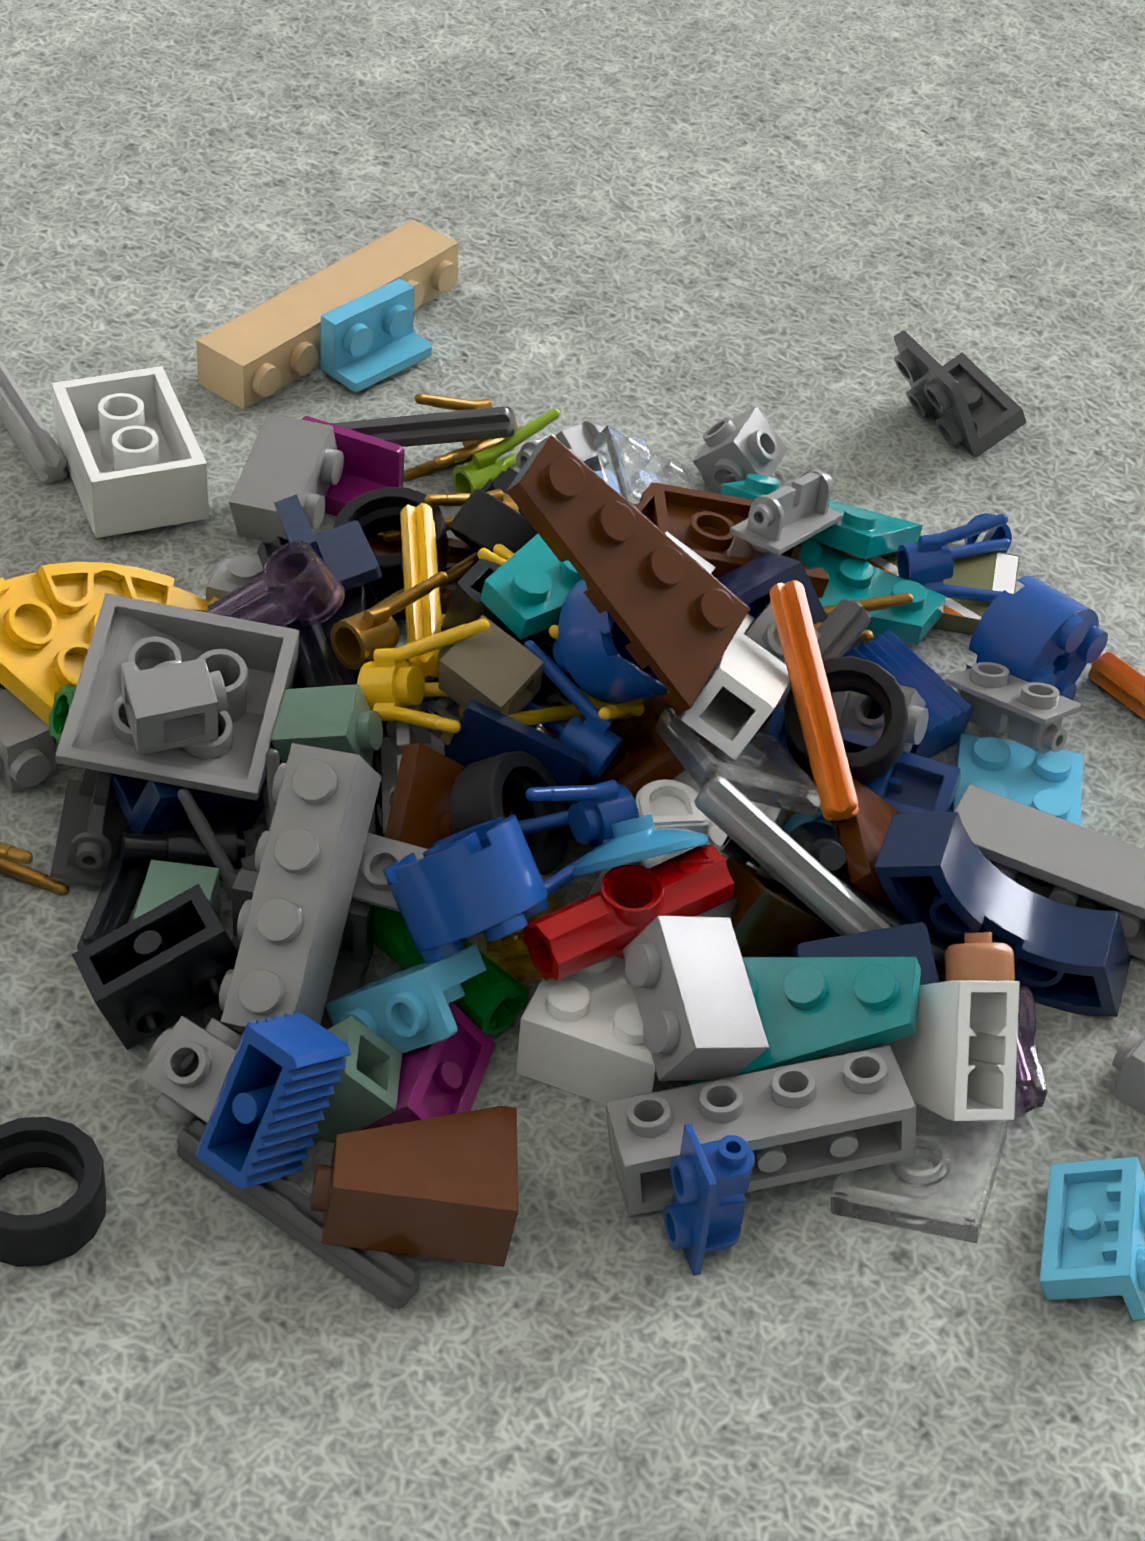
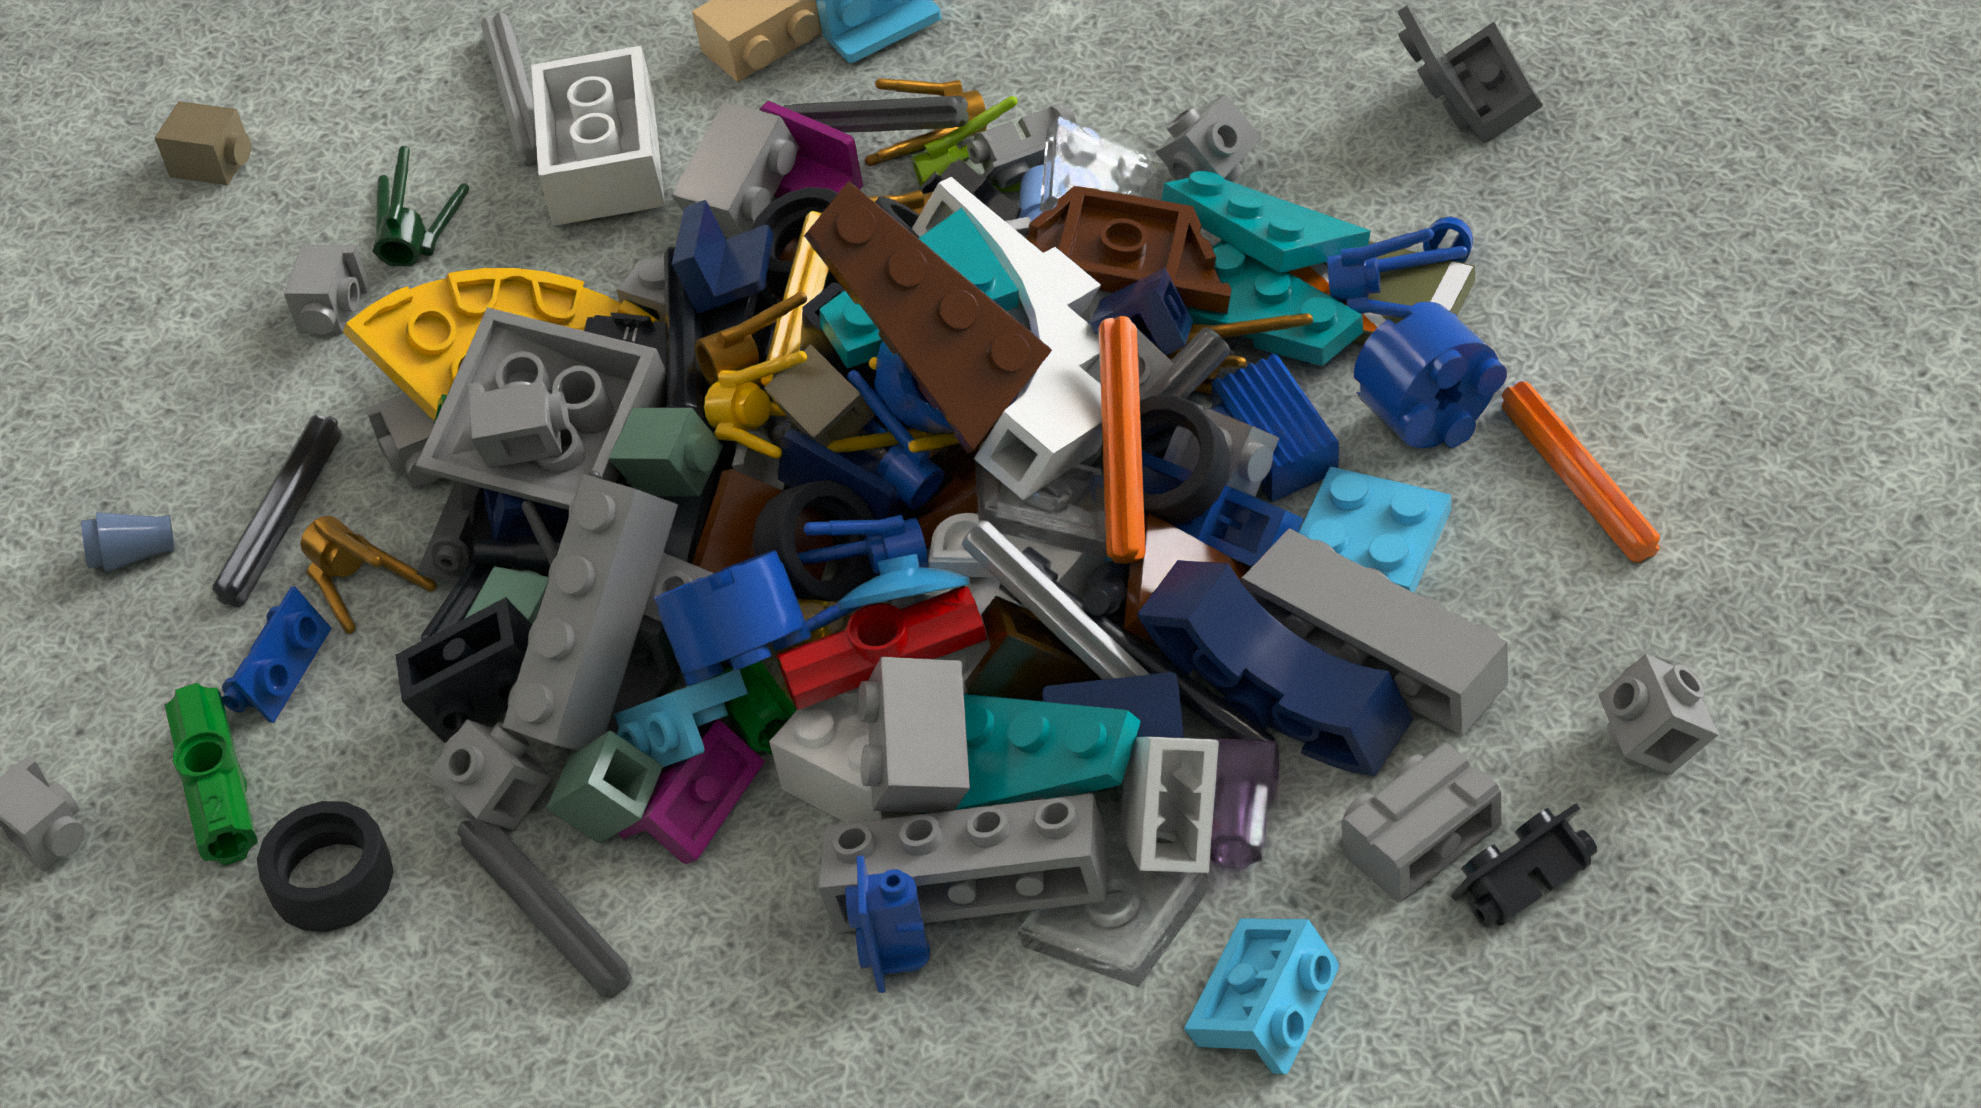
camera: 25 degrees right, 5 degrees up
(272, 1100) = (520, 803): blue brick -> none
(290, 589) = (662, 304): clear purple piece -> none
(424, 1187) = (645, 890): reddish brown slope -> none
(789, 514) = (1186, 234): light grey hinge -> none
(979, 959) = (1229, 719): nougat piece -> none
(1033, 707) = (1377, 441): light grey hinge -> none

